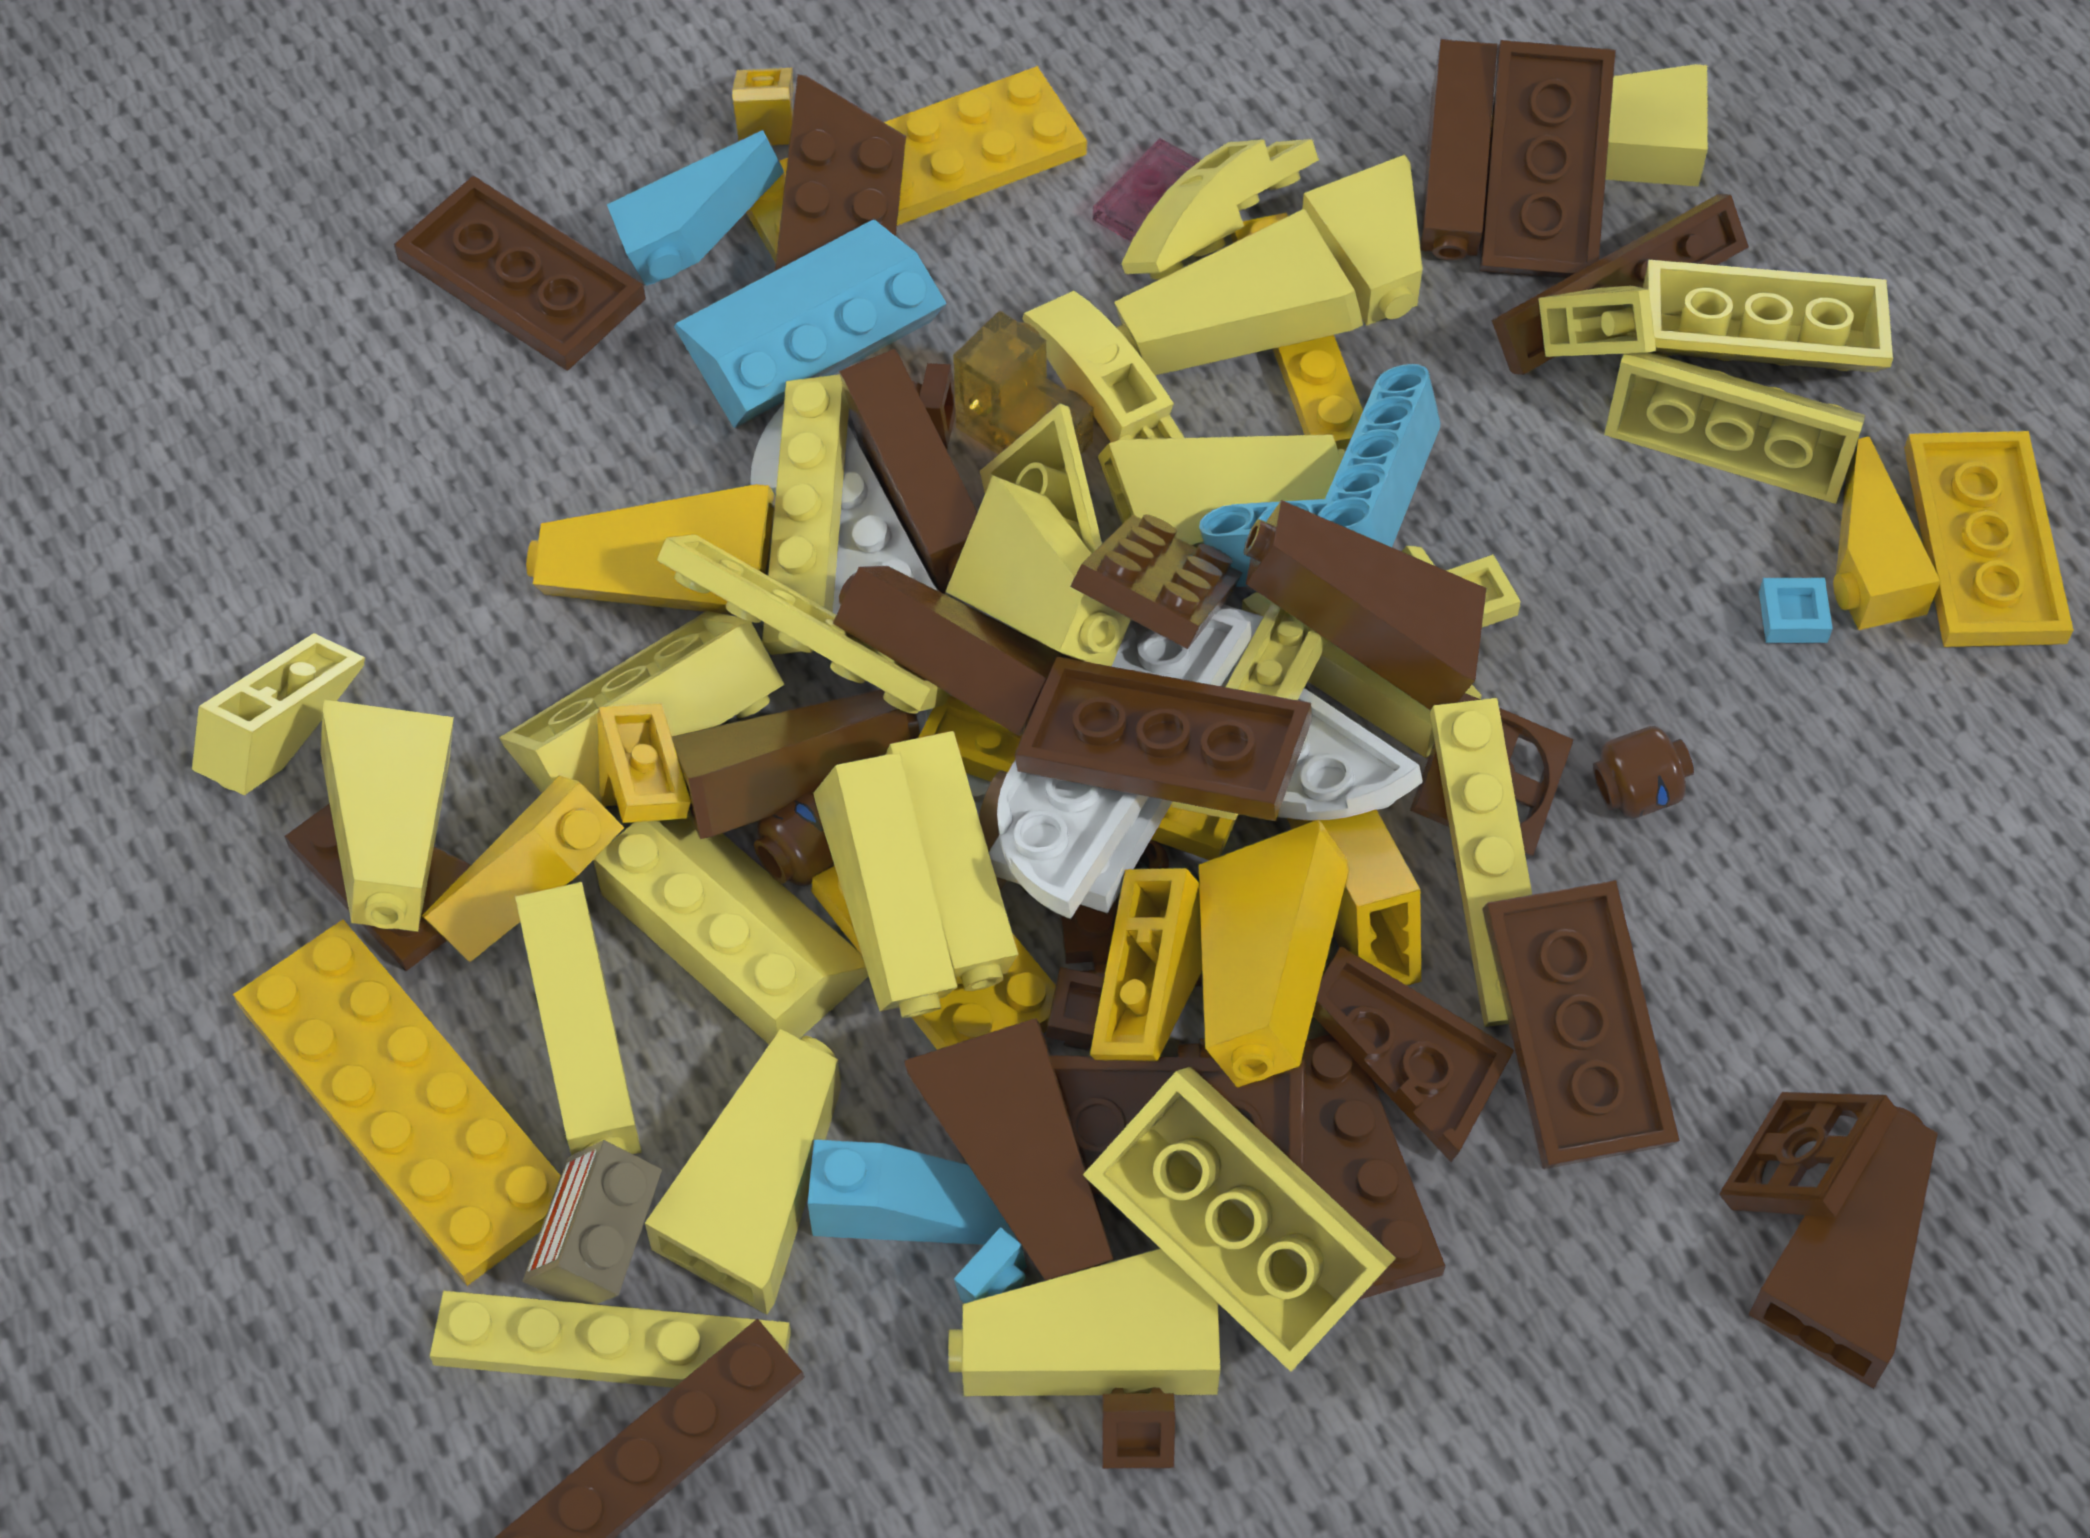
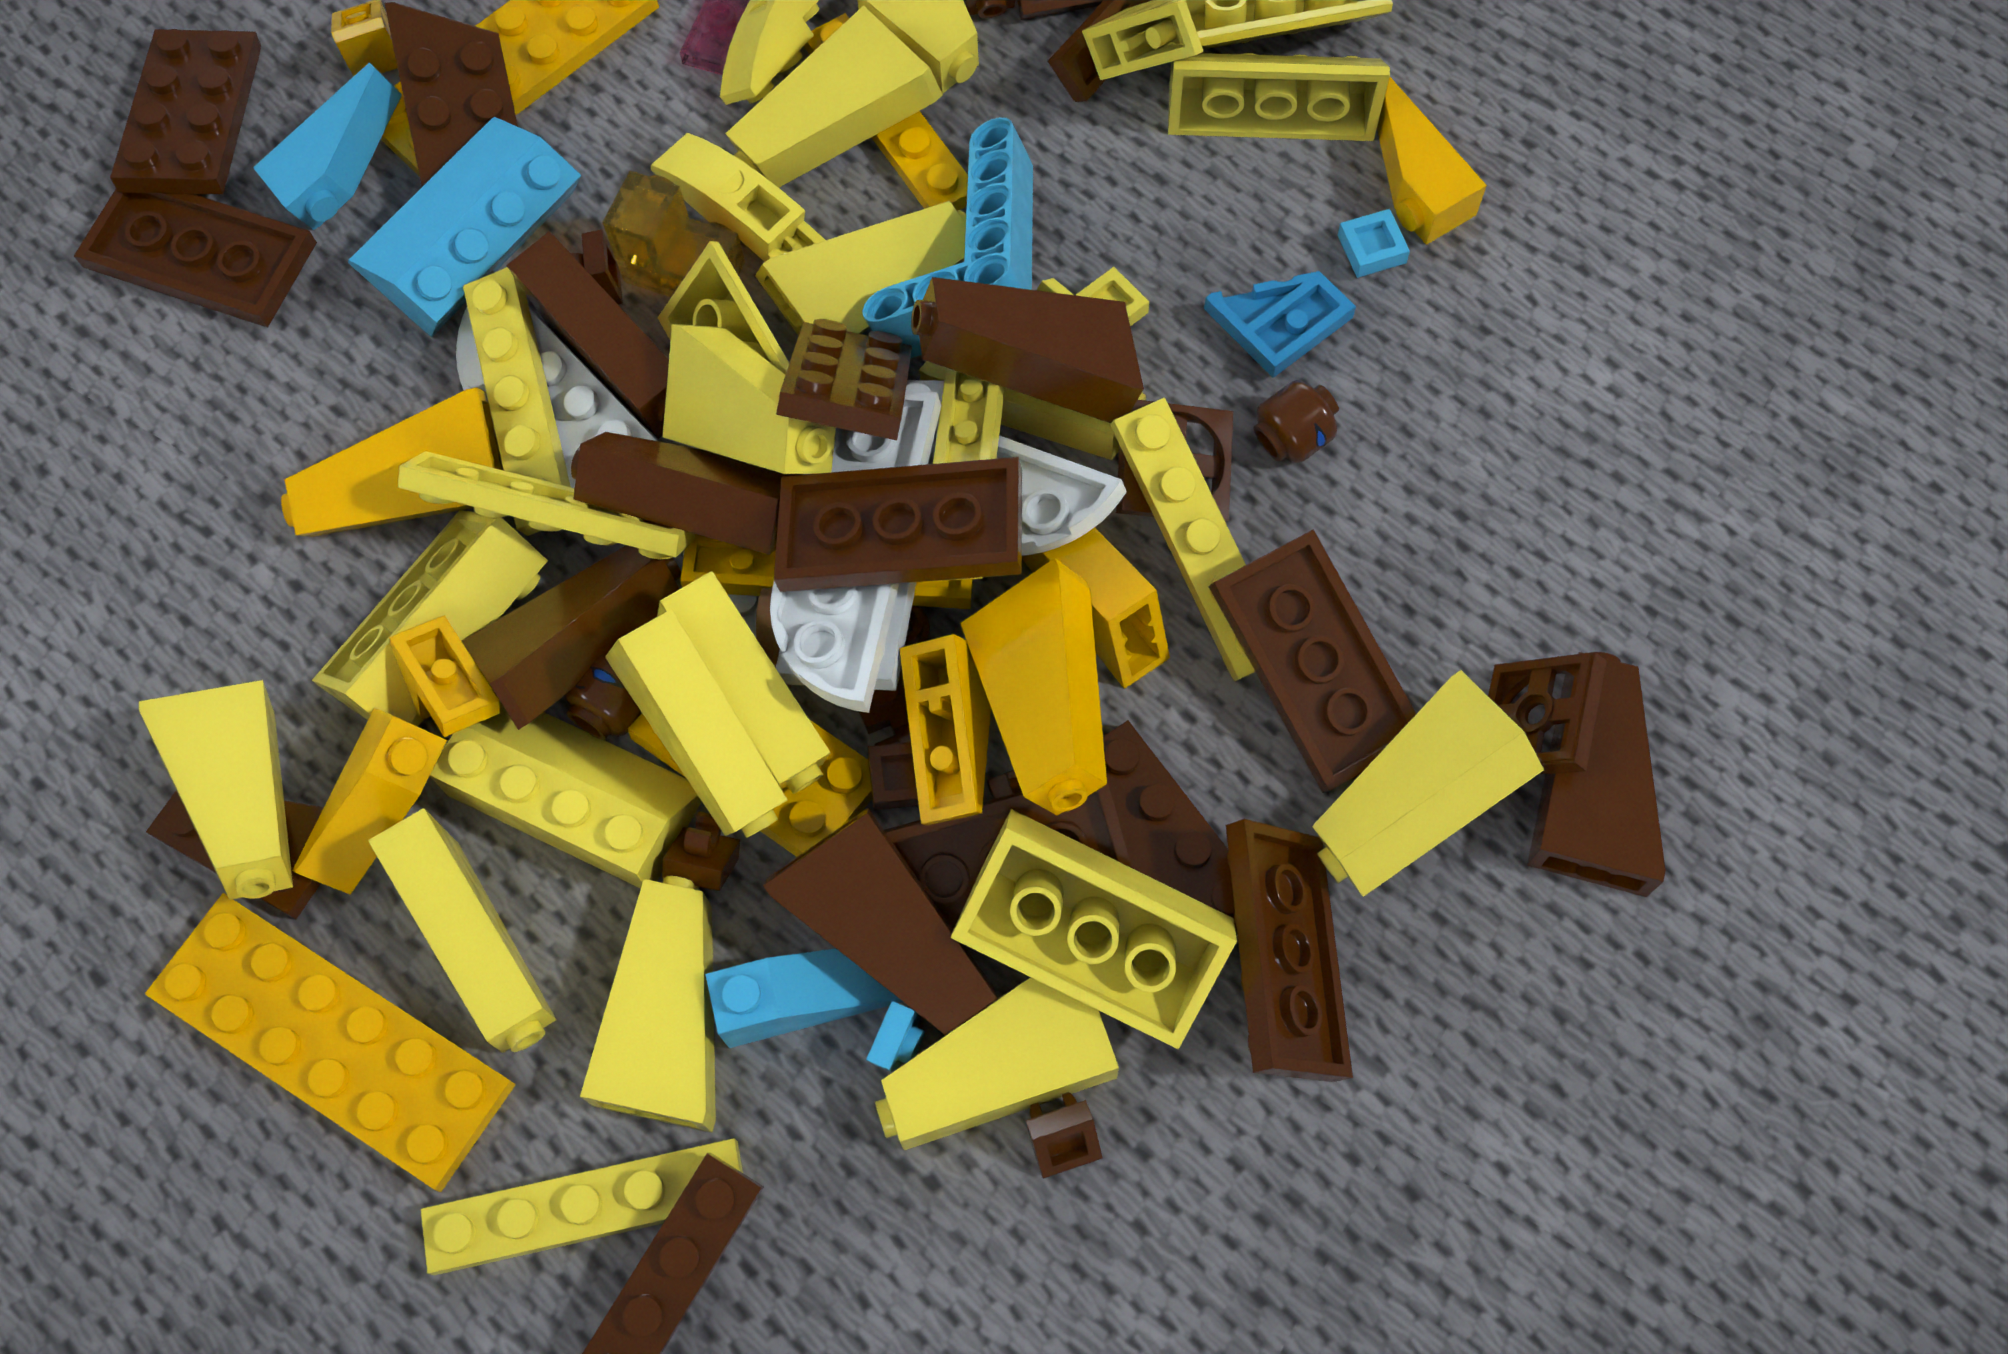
camera: 15 degrees left, 10 degrees up
(270, 713) = (96, 723): light yellow slope -> none
(555, 131) = (187, 112): none -> reddish brown plate
(592, 1225) = (534, 1110): dark tan brick -> none
(850, 1026) = (702, 854): none -> reddish brown tile
(1412, 1048) = (1187, 724): reddish brown wing -> none
(1444, 1313) = (1287, 953): none -> reddish brown plate
(1652, 1186) = (1425, 785): none -> light yellow slope
(1665, 661) = (1282, 319): none -> dark azure wing
(1988, 539) = (1508, 136): yellow plate -> none

